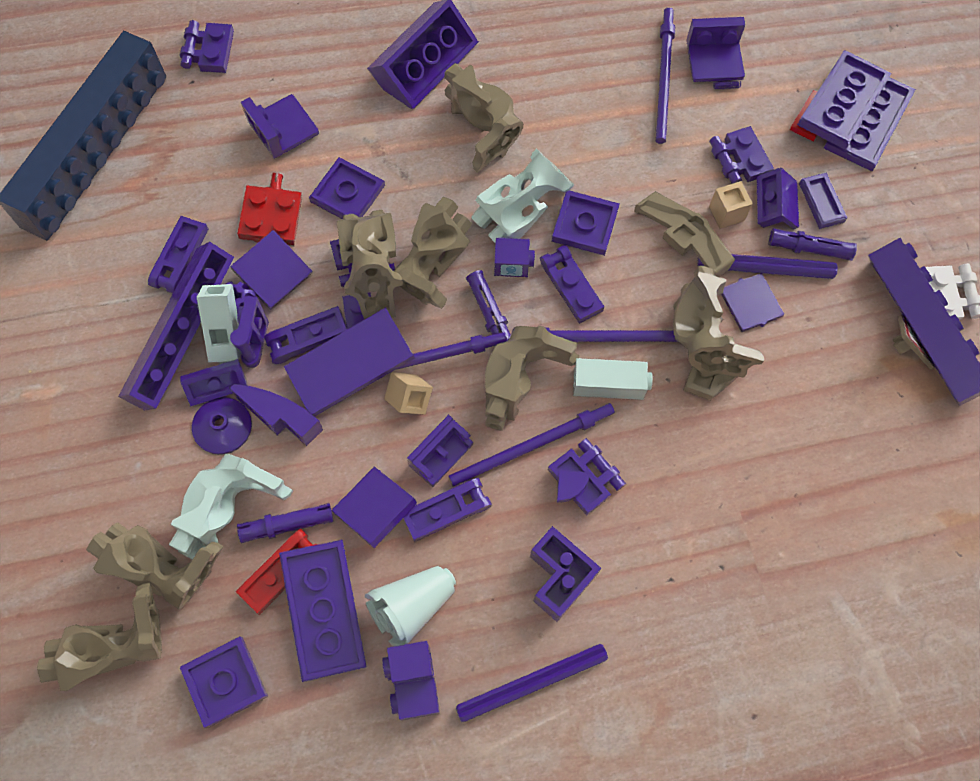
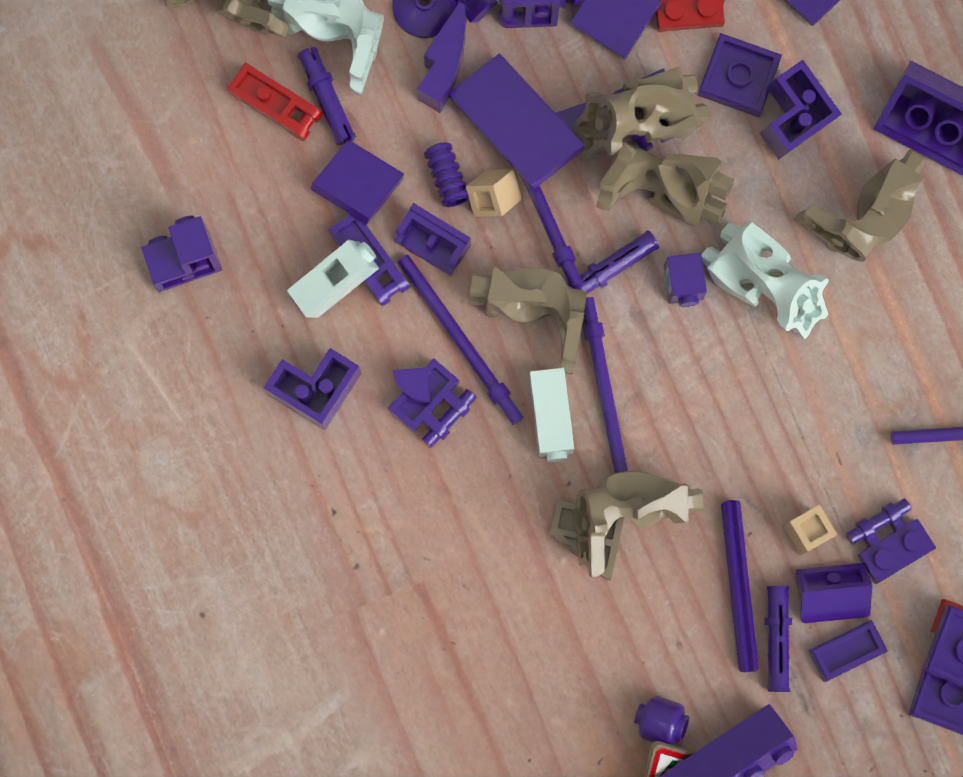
camera: 80 degrees right, 10 degrees up
(223, 682) = (156, 73): dark purple plate -> none
(305, 334) = (543, 69): dark purple plate -> none
(322, 610) = (240, 152): dark purple tile -> none
(383, 429) = (446, 174): none -> dark purple piece
(391, 144) = (805, 109): none -> dark purple brick
(409, 603) = (260, 238): light aqua cone -> none
(463, 539) = (333, 278): none -> light aqua brick
(531, 682) = (201, 378): dark purple axle -> none
(572, 284) = (667, 355): dark purple plate -> none
(585, 222) = (752, 358): dark purple plate -> none
(687, 231) = (762, 482): dark tan plate -> none
(752, 302) = (687, 572): piece -> none
(875, 338) = (662, 720): none -> dark purple head

